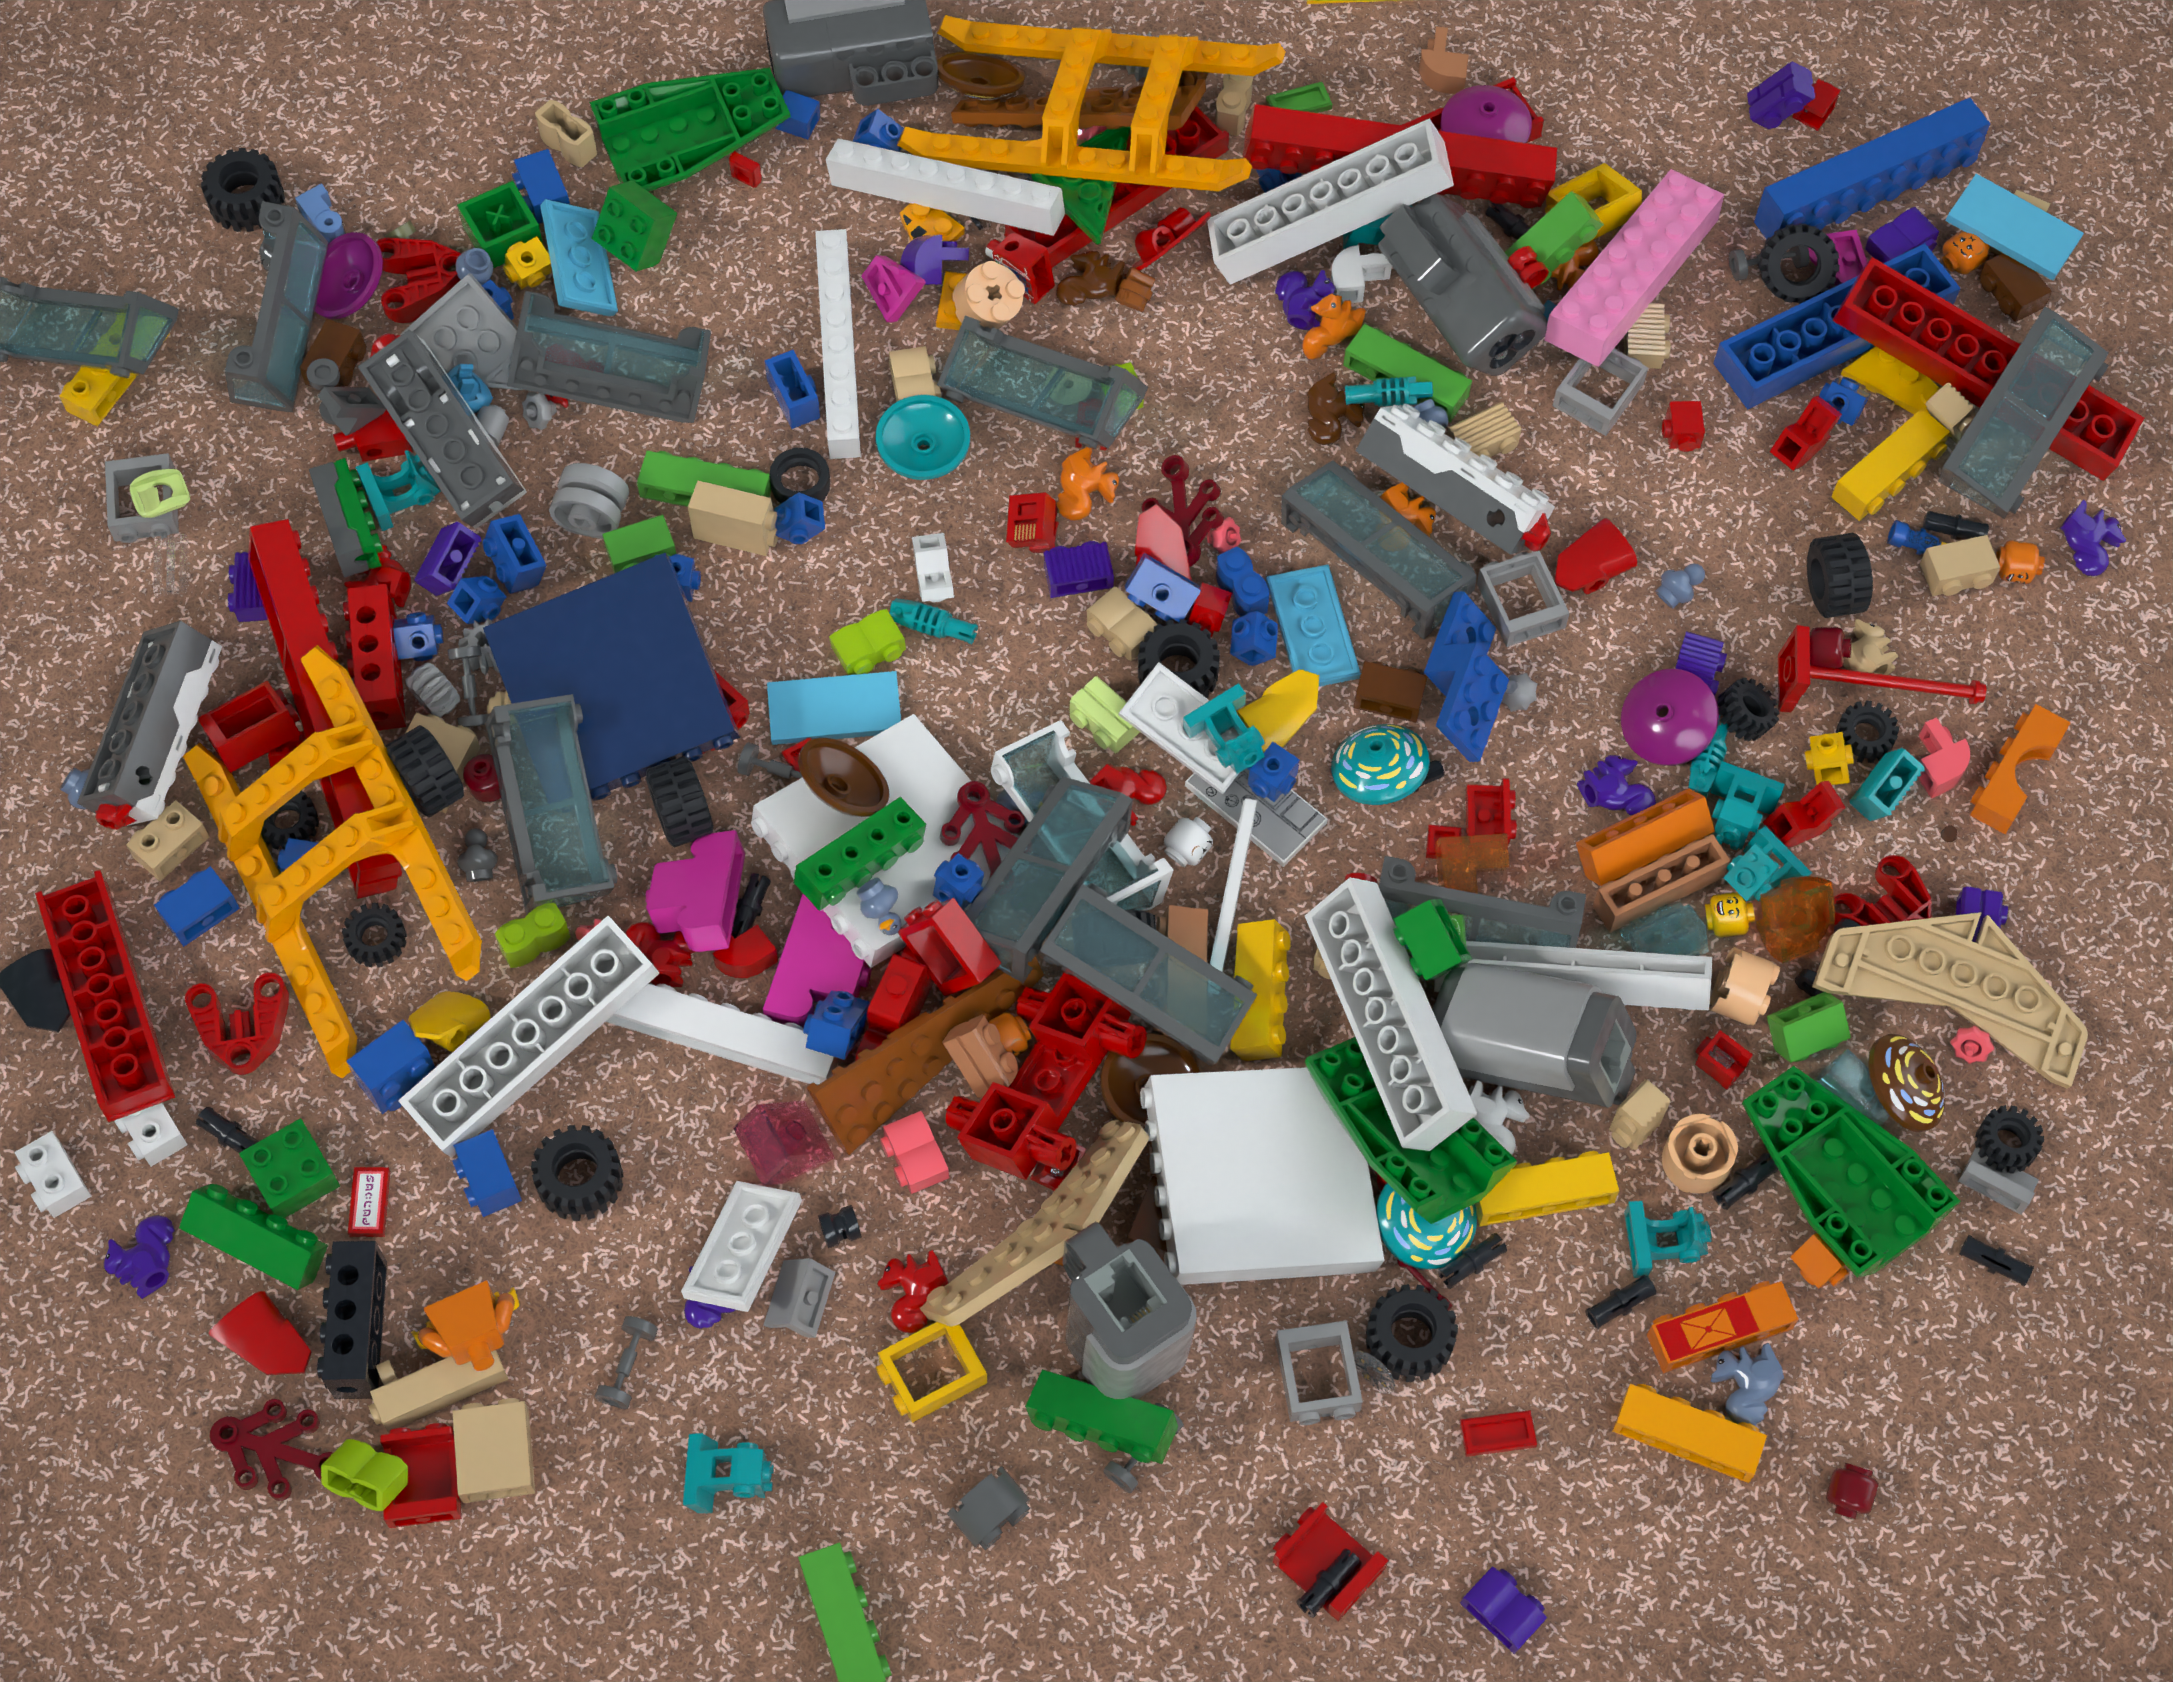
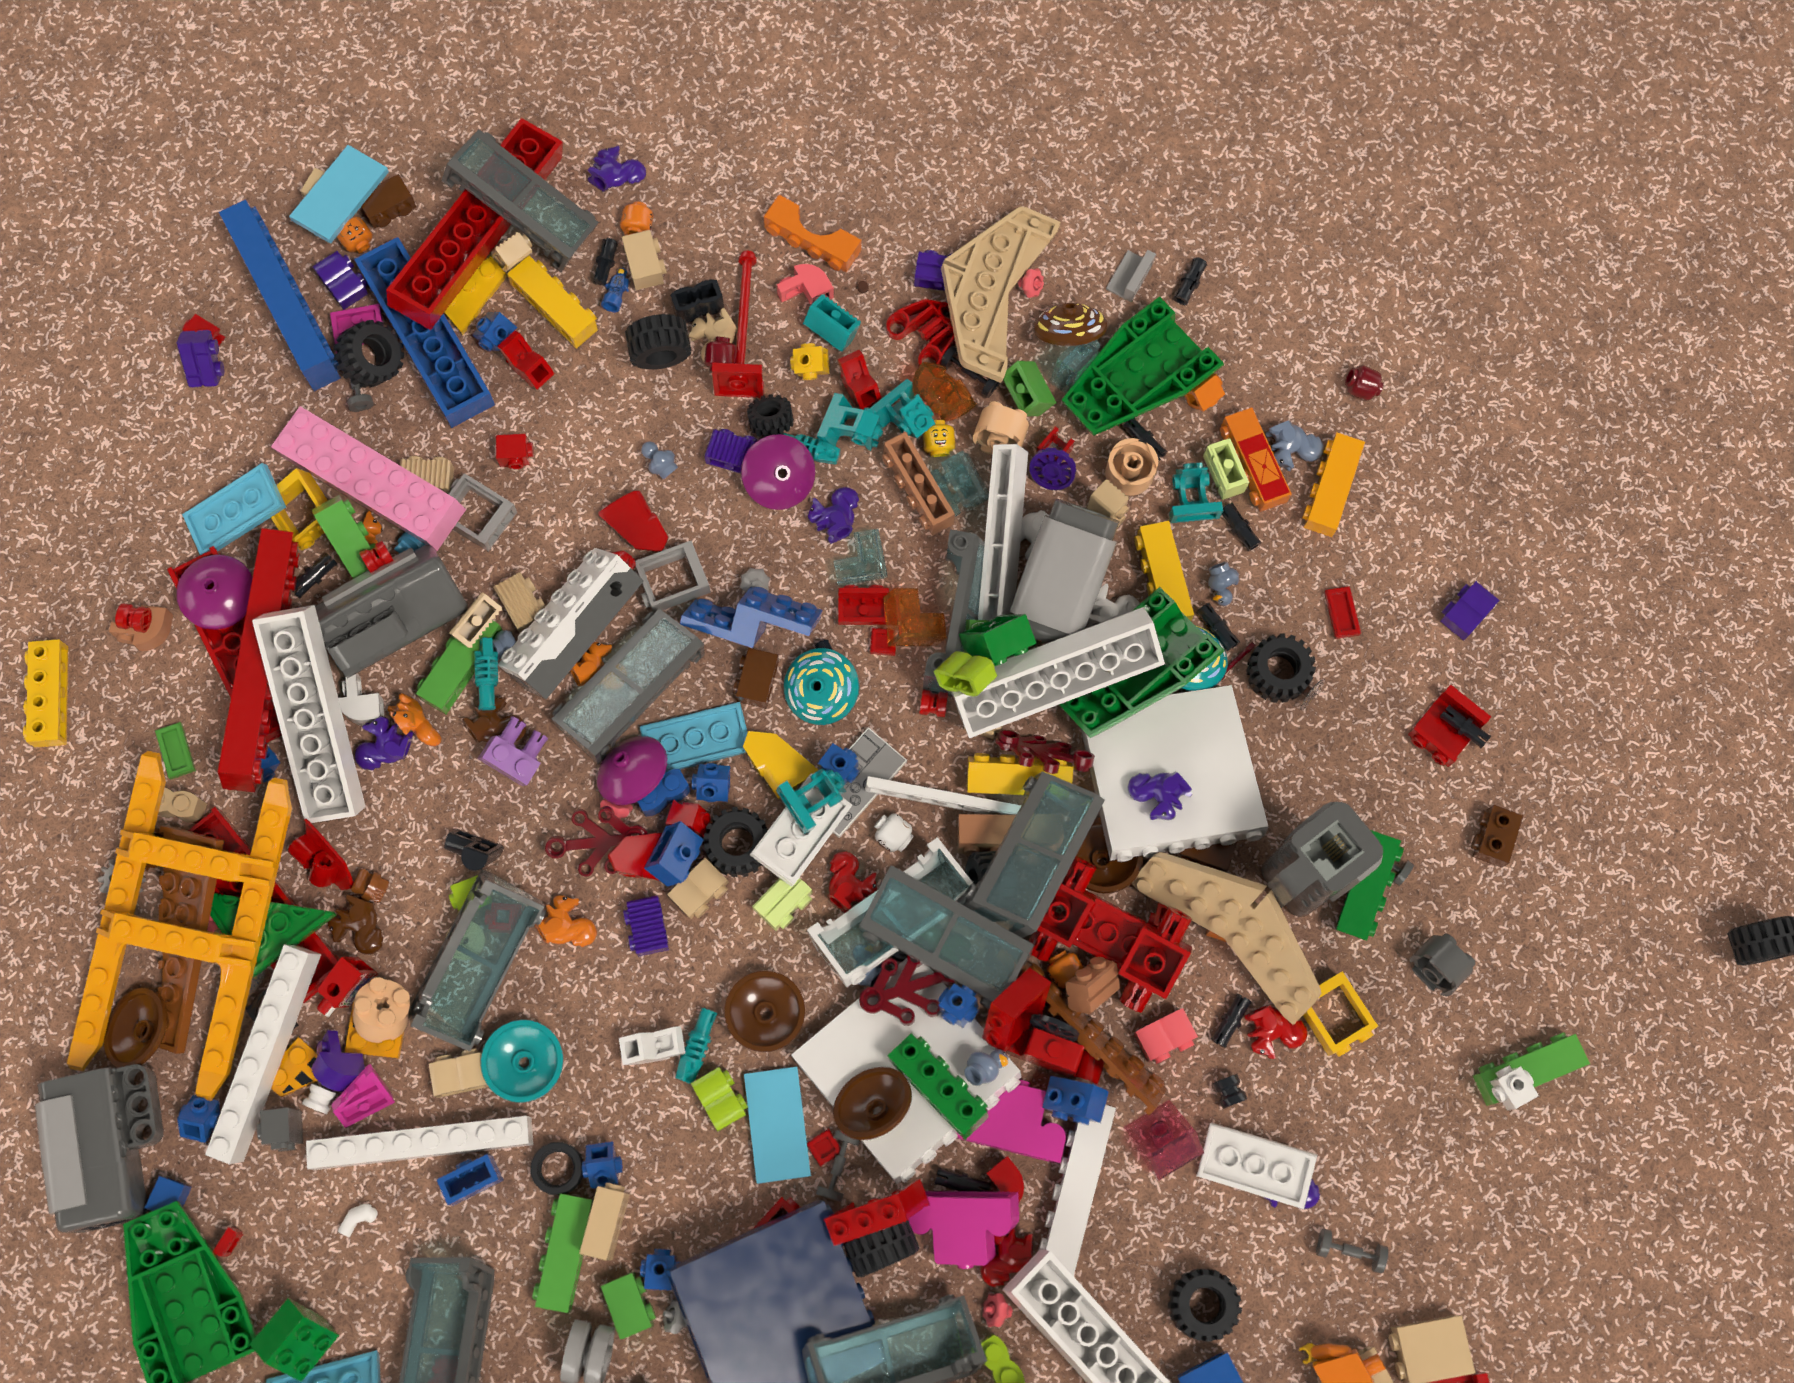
camera: 95 degrees left, 10 degrees up
(715, 787) = (877, 1214): none -> red window
(748, 1475) = (1427, 1145): teal tile -> none
(762, 286) = (357, 1215): none -> white arm
(800, 1296) = (1287, 1120): light grey panel -> none
(811, 1583) = (1513, 1087): none -> white brick
(860, 208) = (280, 1128): none -> dark grey brick
(892, 245) = (319, 1098): none -> white wheel
(923, 987) = (1054, 1027): none -> black wheel
(930, 1236) = (1231, 1020): none -> black pin
(964, 671) = (753, 995): none -> reddish brown dish
(1032, 522) = (603, 965): red piece -> none
(1170, 1611) = (1496, 835): none -> reddish brown brick
(1174, 387) = (474, 850): none -> black brick
(1231, 1143) = (1164, 788): none -> dark purple animal
(1270, 547) = (631, 770): none -> magenta dish
(1282, 420) = (507, 759): none -> medium lavender brick
(1304, 975) = (1036, 744): none -> dark red plant
(1310, 1338) = (1288, 739): light grey window -> none
(1382, 891) = (965, 673): none -> lime brick
(1450, 48) = (135, 618): none -> red wheel
(1452, 372) = (475, 620): none -> tan brick
(1541, 1265) = (1221, 578): none -> sand blue animal
(1548, 823) = (868, 564): none -> clear light blue brick
(1591, 141) = (234, 510): none -> medium azure tile
(1645, 837) = (880, 493): orange brick -> none
(1690, 1050) = (1052, 469): none -> dark purple wheel
(1703, 1279) = (1226, 469): none -> yellowish green brick
(1880, 720) = (782, 322): black tyre -> none
(1905, 626) = (697, 300): none -> black brick
(1999, 1152) = (1103, 276): black tyre -> none

